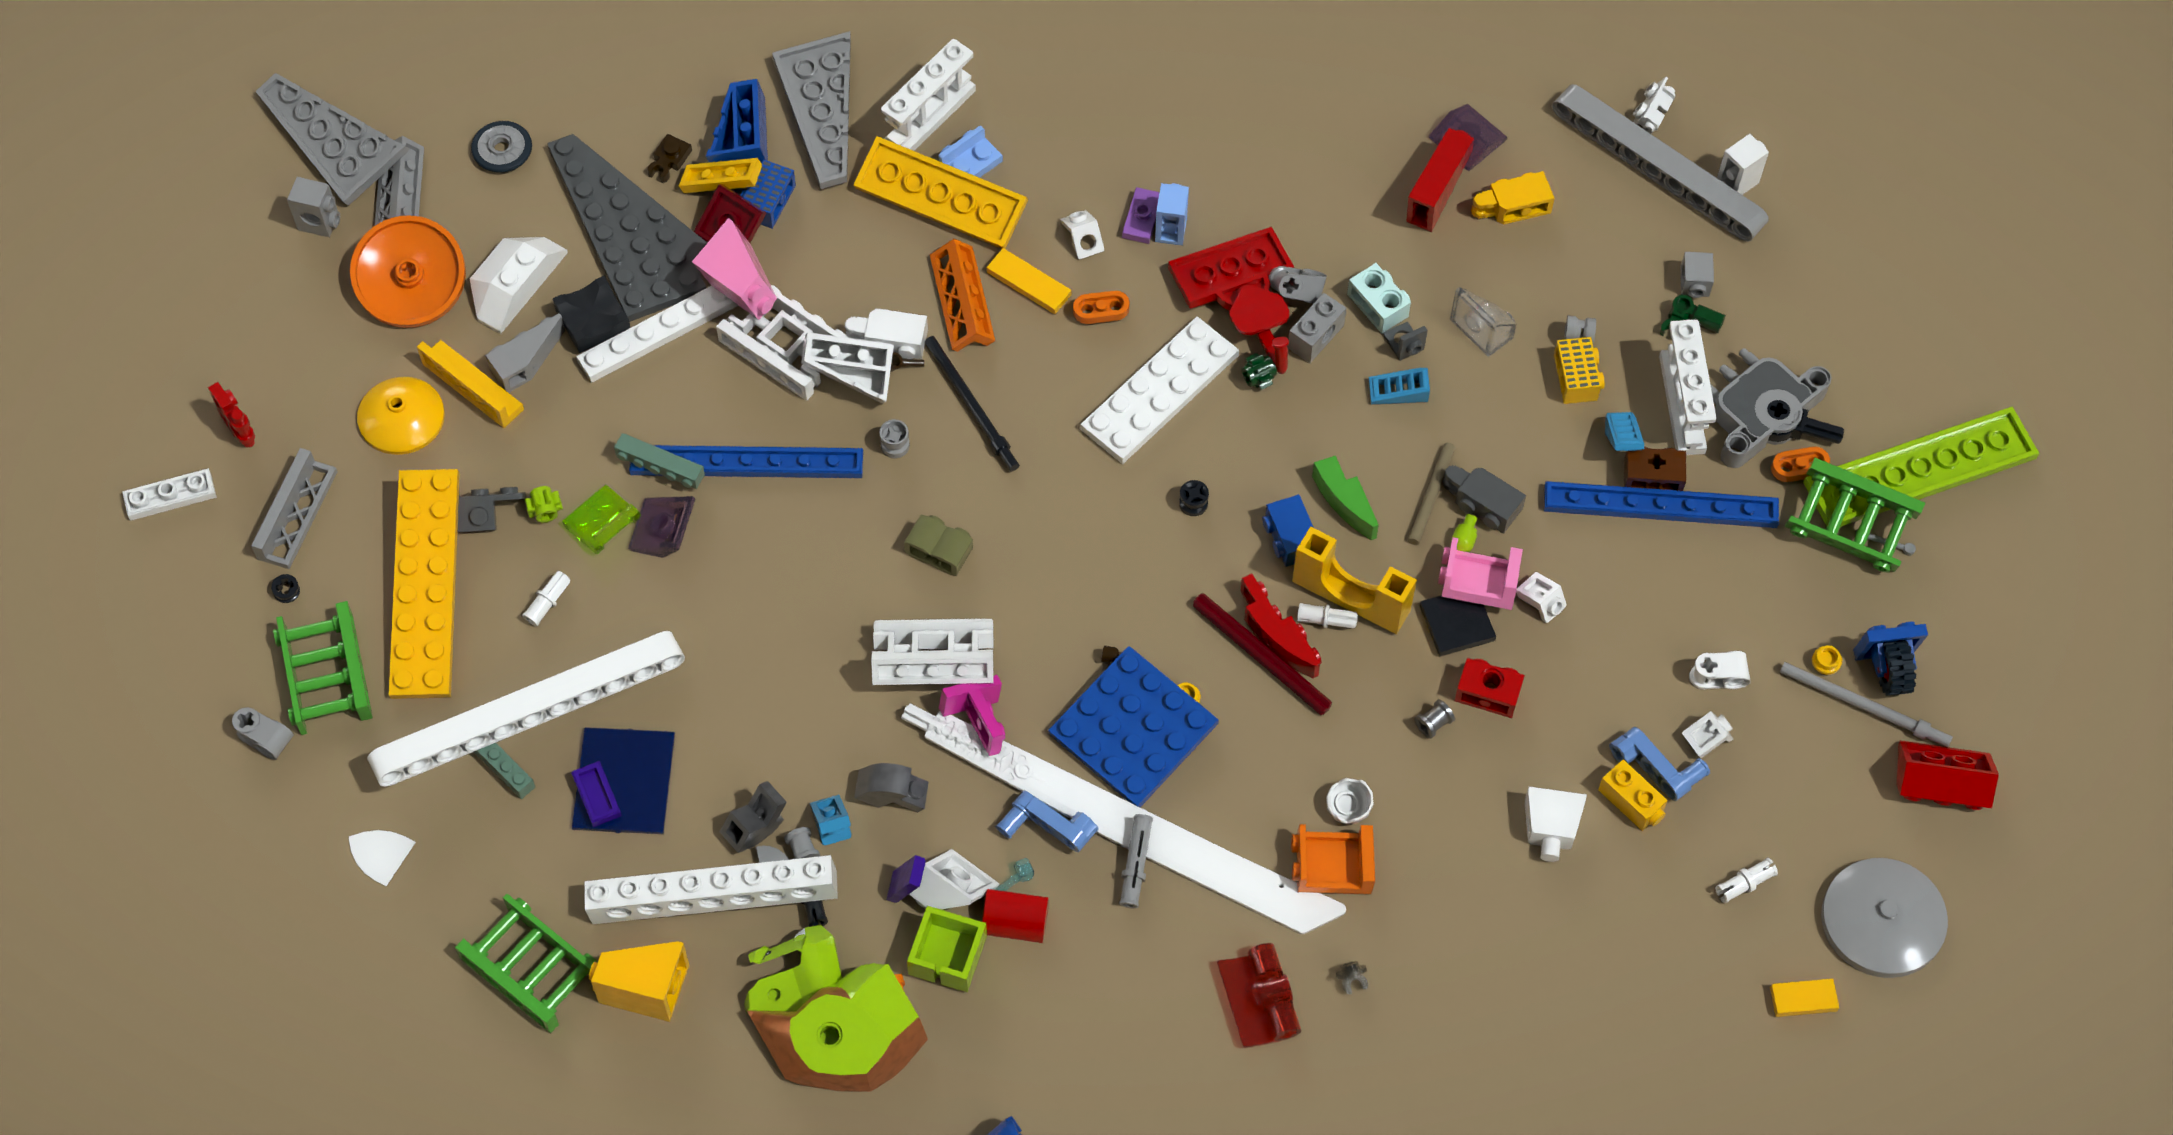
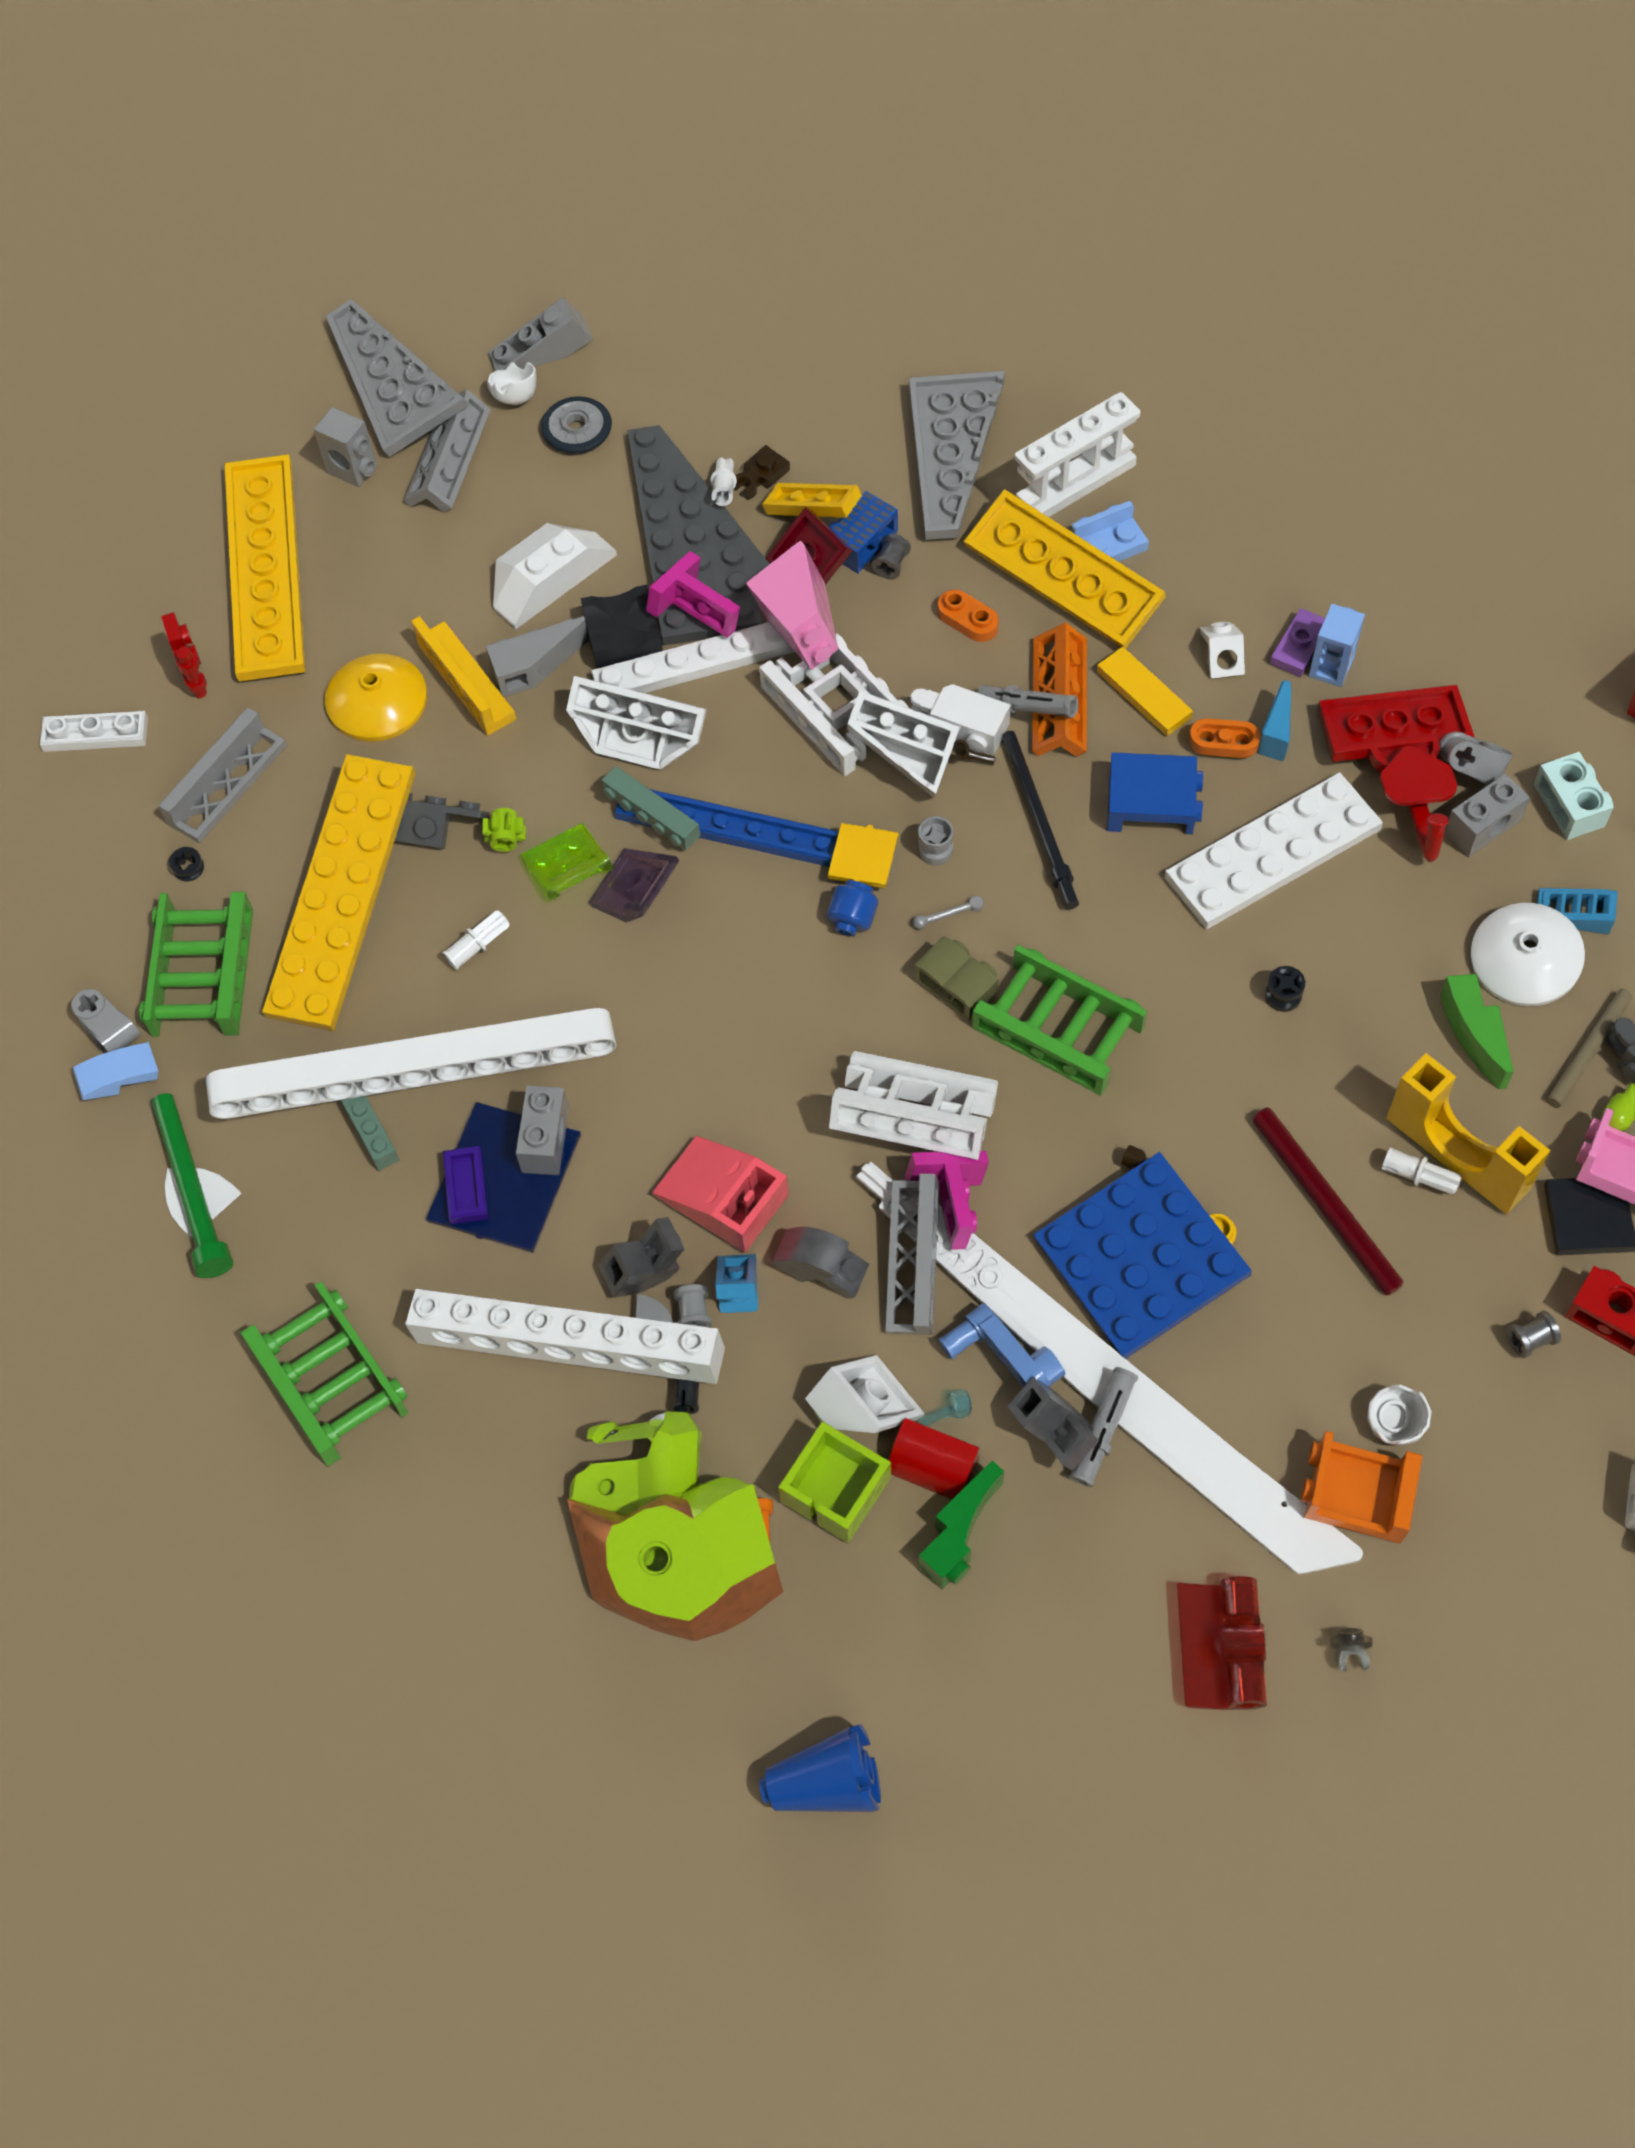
camera: 20 degrees right, 0 degrees up
(272, 324) = (264, 568): none -> yellow plate
(279, 770) = (107, 1072): none -> light blue slope
(407, 271) = (428, 537): orange dish -> none
(408, 895) = (211, 1256): none -> green piece
(438, 122) = (513, 384): none -> white hair
(451, 77) = (544, 339): none -> light grey slope
(626, 393) = (634, 723): none -> white wedge
(641, 173) = (723, 481): none -> white axle
(641, 978) = (450, 1426): yellow slope -> none
(647, 279) = (683, 589): none -> dark pink bracket
(647, 737) = (542, 1130): none -> light grey brick
(742, 124) = (853, 448): blue wedge -> none
(797, 209) = (889, 560): none -> flat silver bush
(801, 751) = (724, 1191): none -> coral slope
(840, 463) = (863, 855): none -> yellow piece
(843, 507) = (852, 908): none -> blue head
(870, 246) = (965, 615): none -> orange plate
(906, 879) = (807, 1380): dark purple tile -> none
(938, 482) = (975, 904): none -> light grey hinge
(942, 309) = (1032, 700): none -> light grey pin
(971, 763) = (925, 1256): none -> light grey fence
(1032, 586) = (1052, 1052): none -> bright green fence
(1045, 981) = (948, 1554): none -> green slope
(1056, 361) = (1154, 790): none -> blue panel
(1099, 866) = (1054, 1422): none -> flat silver brick
(1140, 295) = (1276, 732): none -> dark azure slope
(1259, 371) = (1402, 852): dark green gear -> none
(1279, 635) = (1356, 1183): red slope -> none
(1288, 524) = (1396, 1046): blue brick -> none
(1375, 446) = (1523, 973): none -> white dish
(1410, 343) = (1601, 857): dark grey bracket -> none

